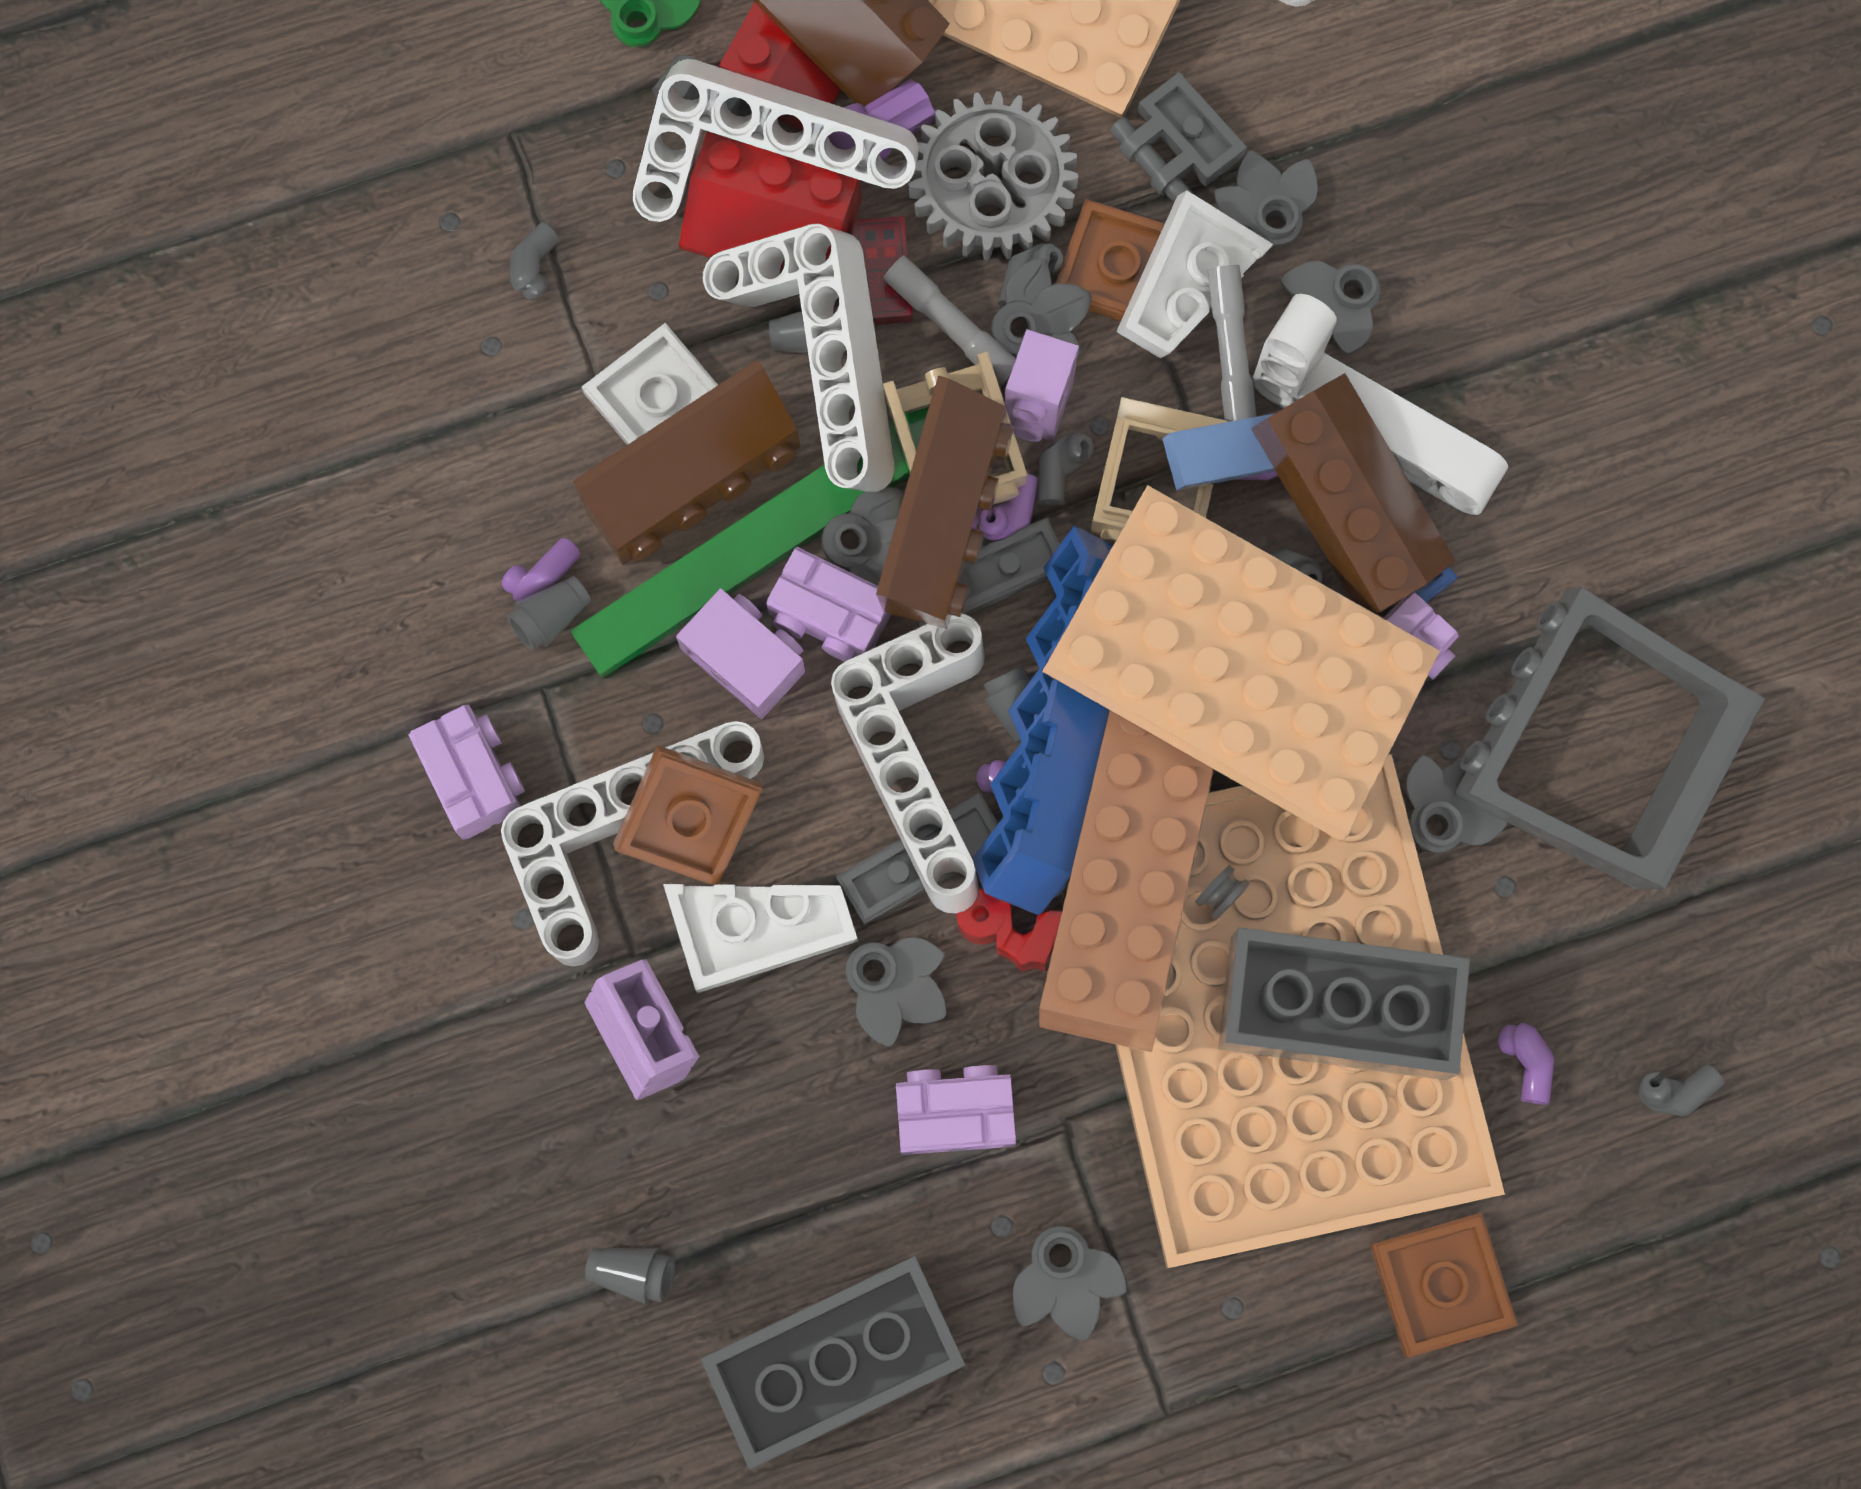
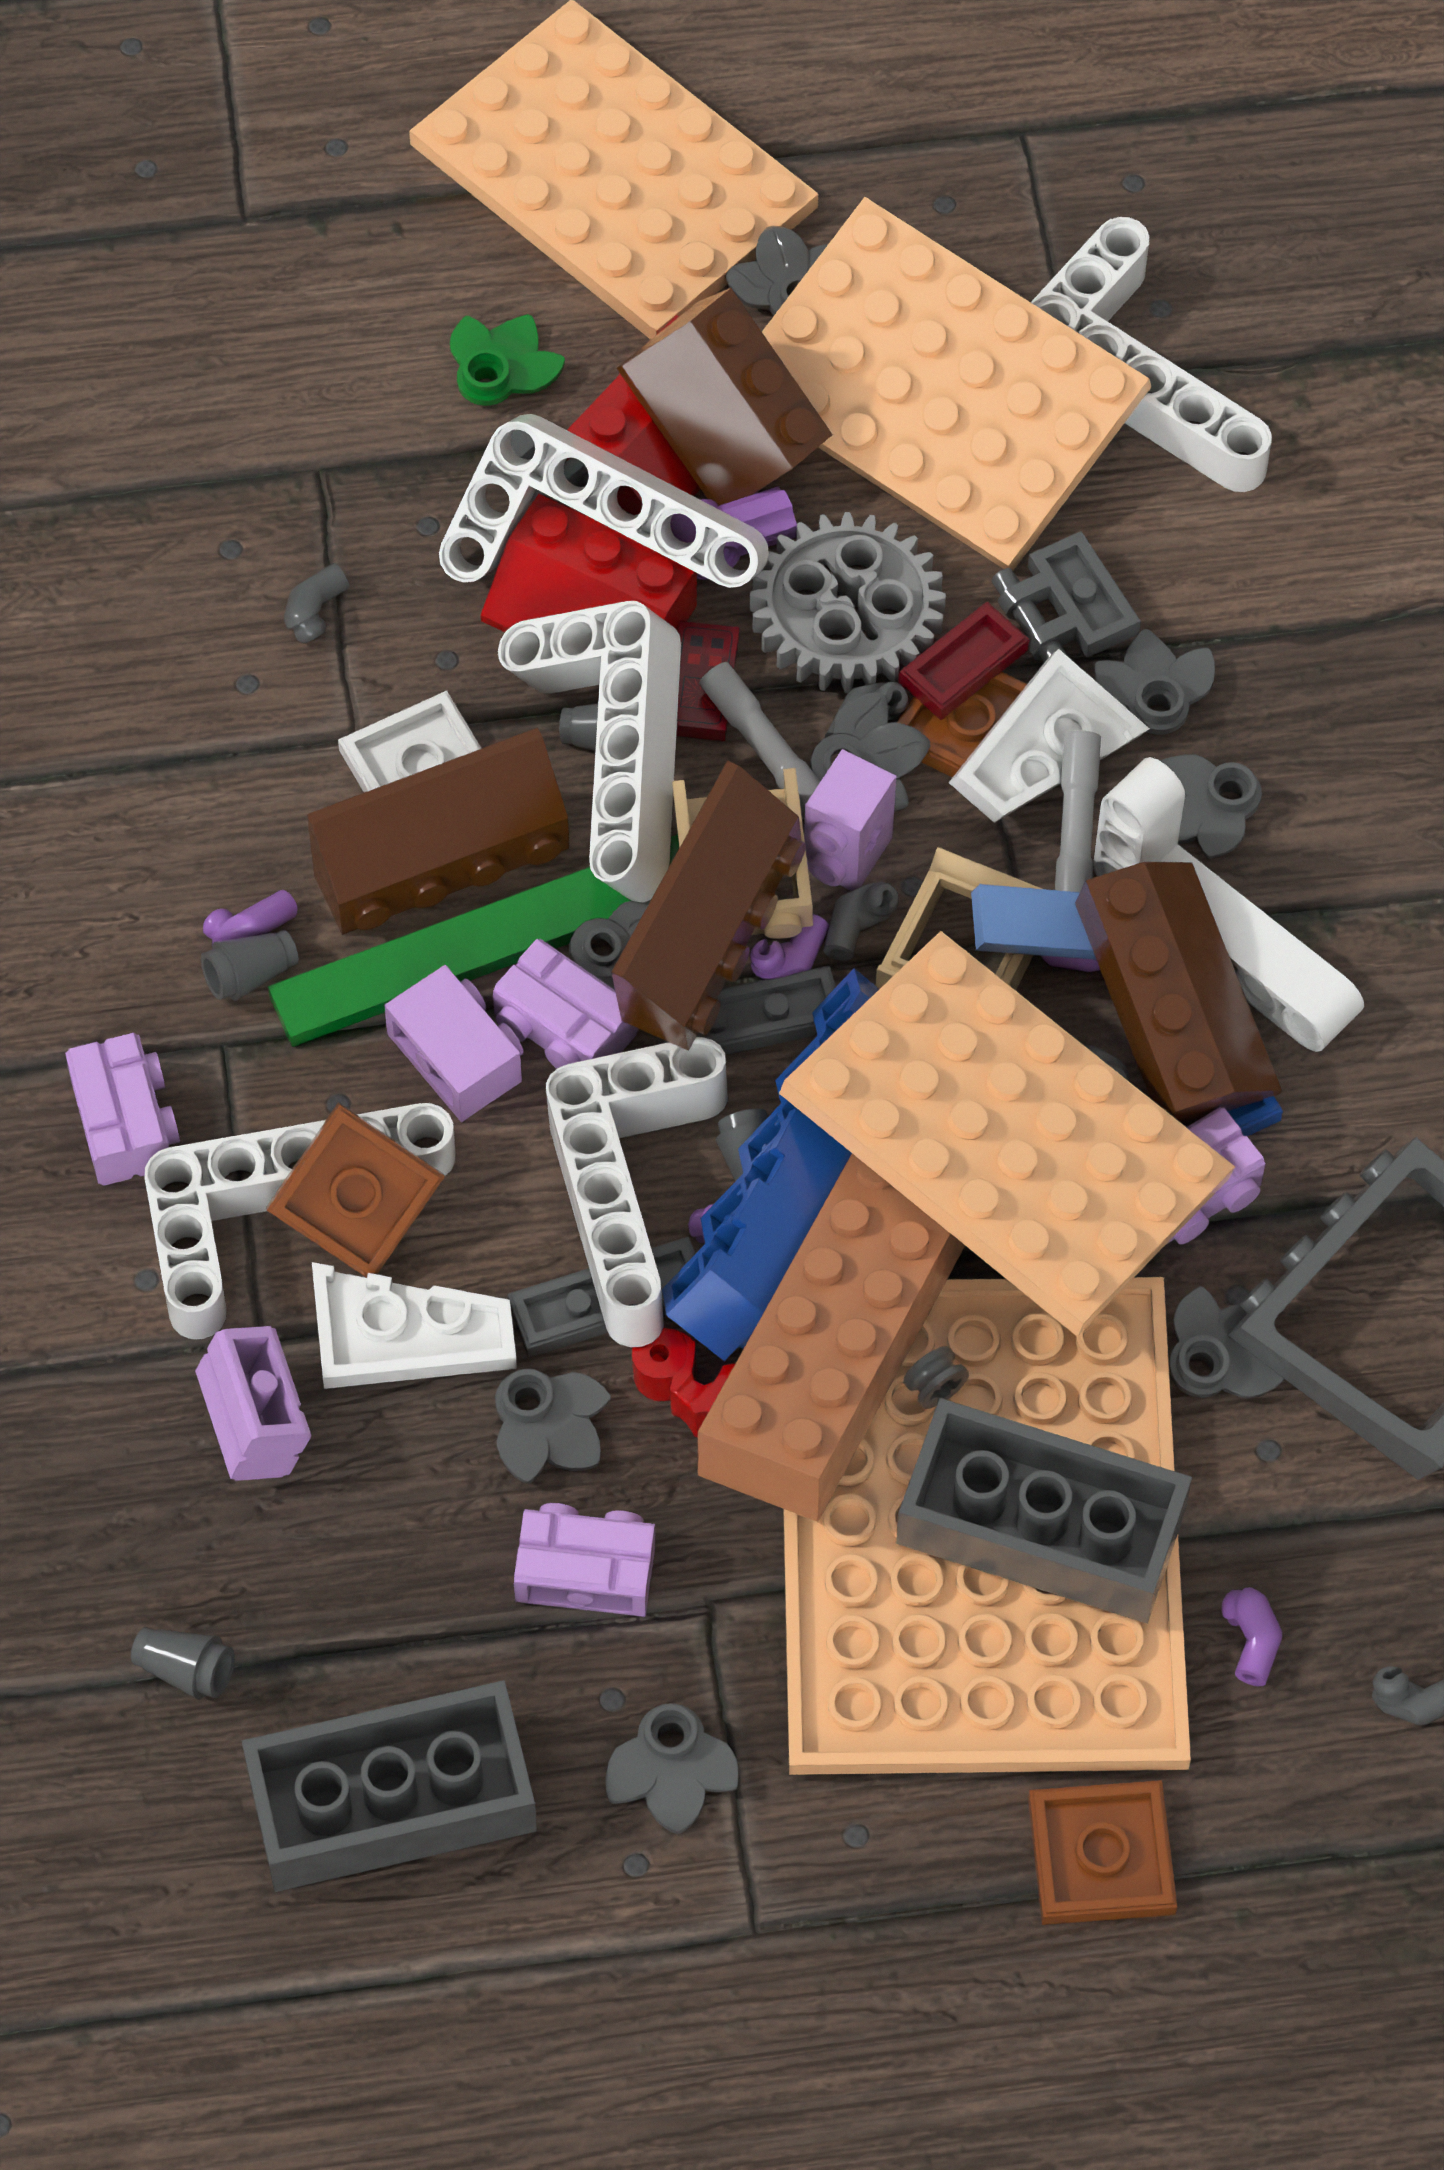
camera: 10 degrees right, 15 degrees down
(1104, 212) = (963, 660): none -> dark red tile

